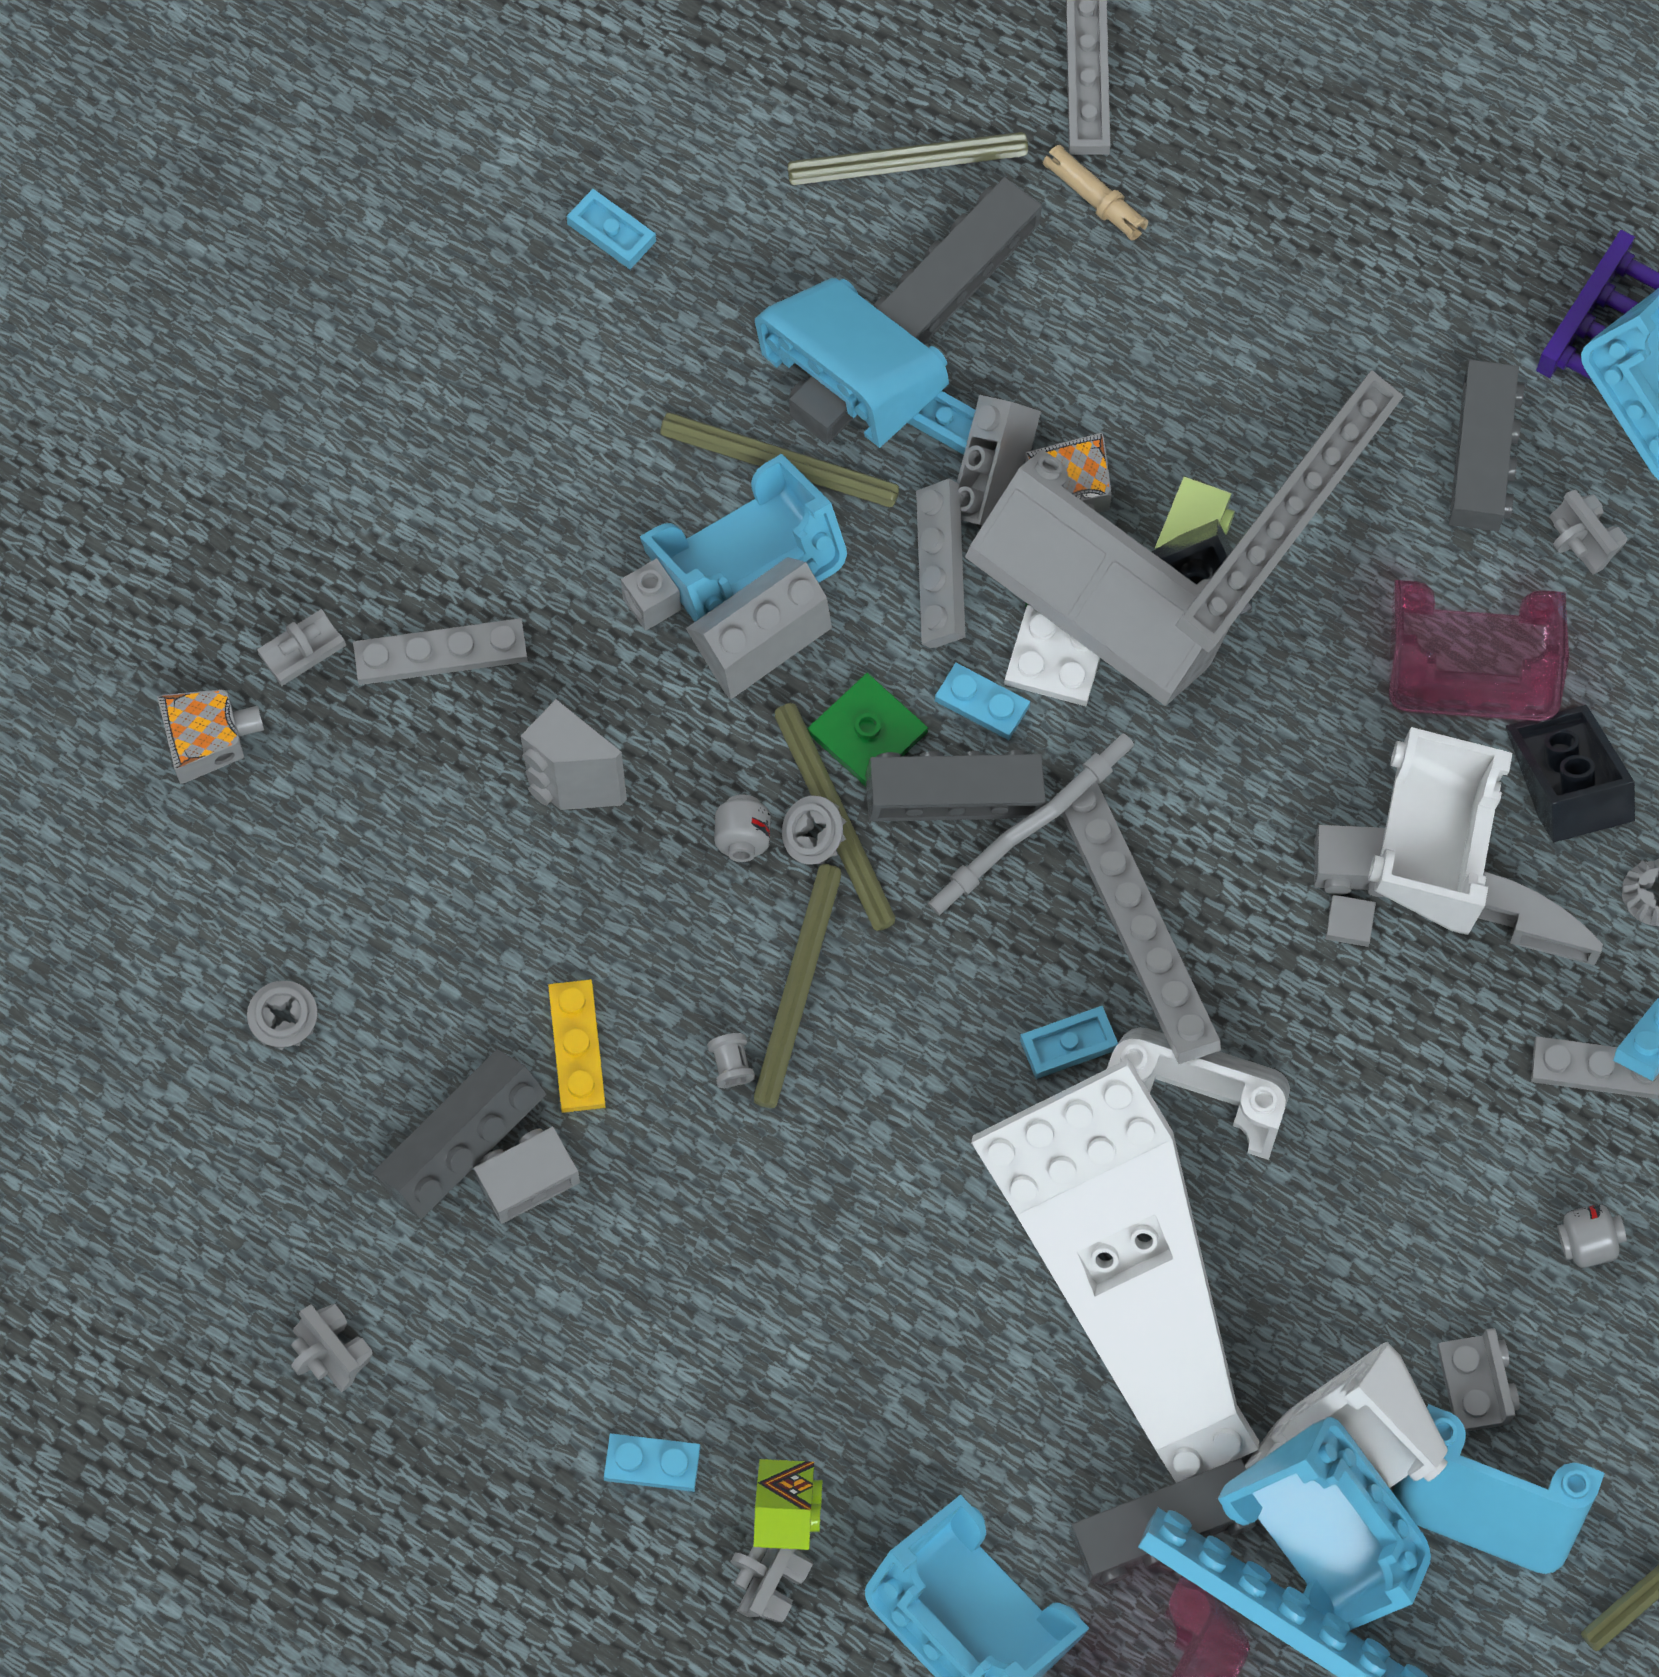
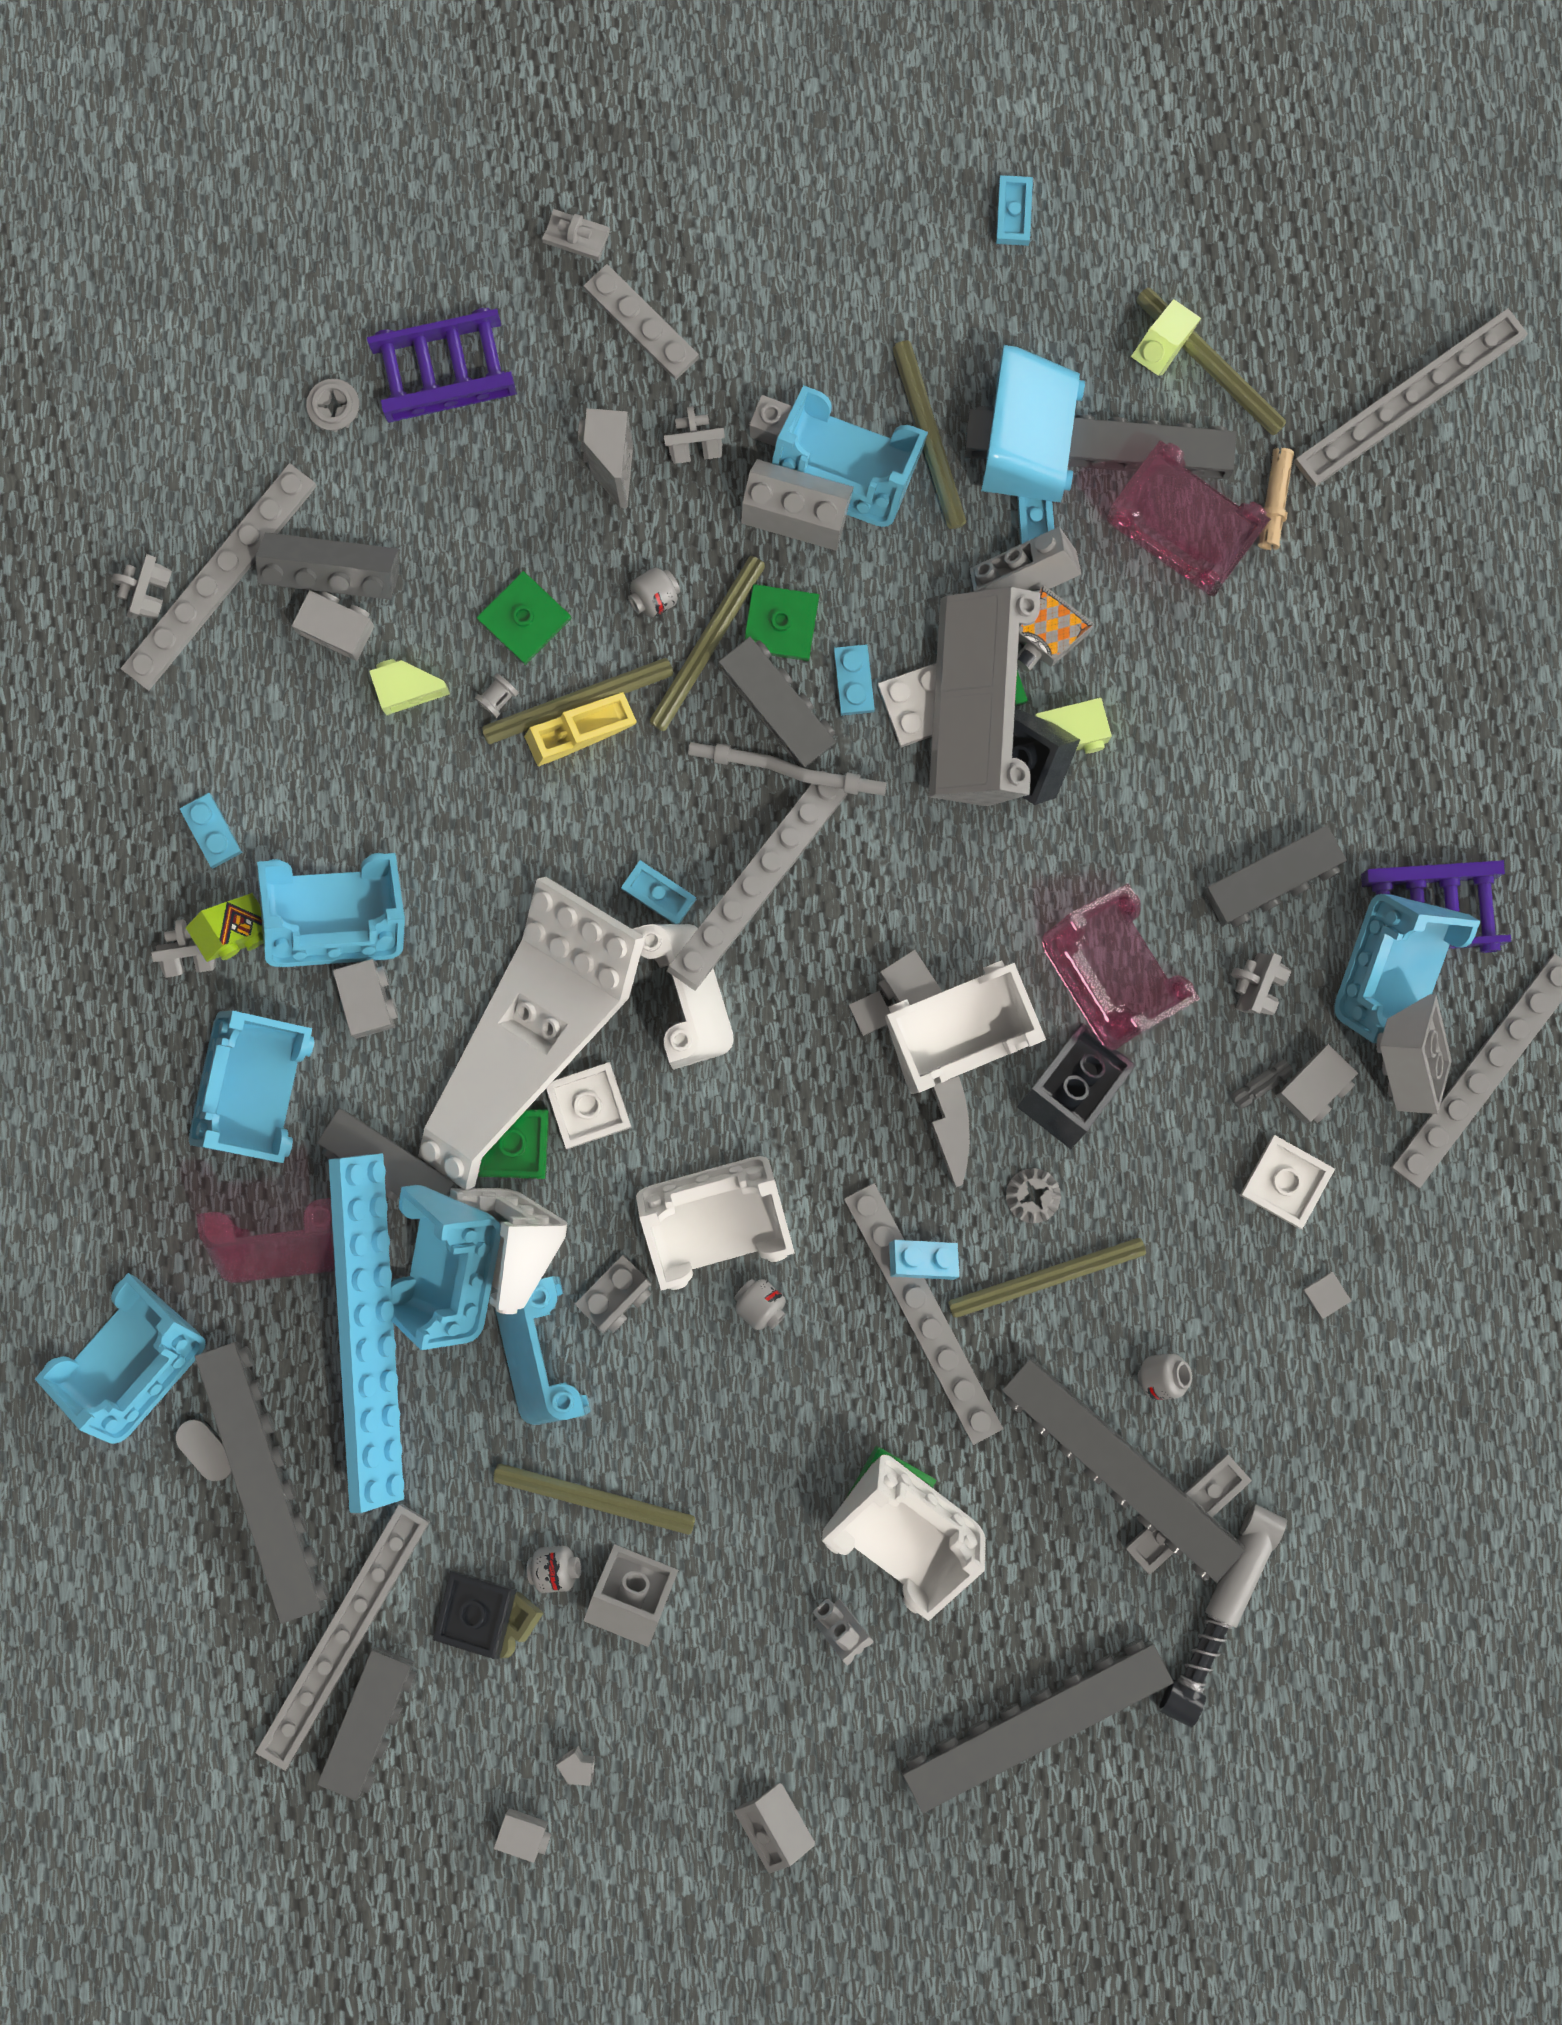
camera: 55 degrees right, 15 degrees up
(205, 731) = (479, 219): light grey torso -> none
(355, 906) = (464, 389): none -> dark purple fence
(377, 1264) = (217, 577): none -> light grey plate
(576, 1046) = (441, 595): yellow plate -> none
(620, 667) = (679, 442): none -> light grey hips
(649, 1145) = (404, 686): none -> yellowish green slope
(666, 978) = (524, 618): none -> green plate
(800, 821) = (689, 624): light grey gear -> none
(830, 1002) = (579, 728): none -> light yellow slope
(851, 1383) = (331, 914): none -> medium azure windscreen
(858, 177) = (1166, 338): none -> yellowish green slope
(940, 564) = (929, 586): light grey plate -> none
(964, 1419) = (365, 998): none -> light grey brick
(1065, 280) = (1186, 520): none -> clear pink windscreen
(1251, 1267) = (588, 1105): none -> white plate
(1255, 1368) = (520, 1150): none -> green plate
(1288, 512) = (1115, 781): light grey plate -> none
(1466, 1217) = (713, 1219): none -> white windscreen

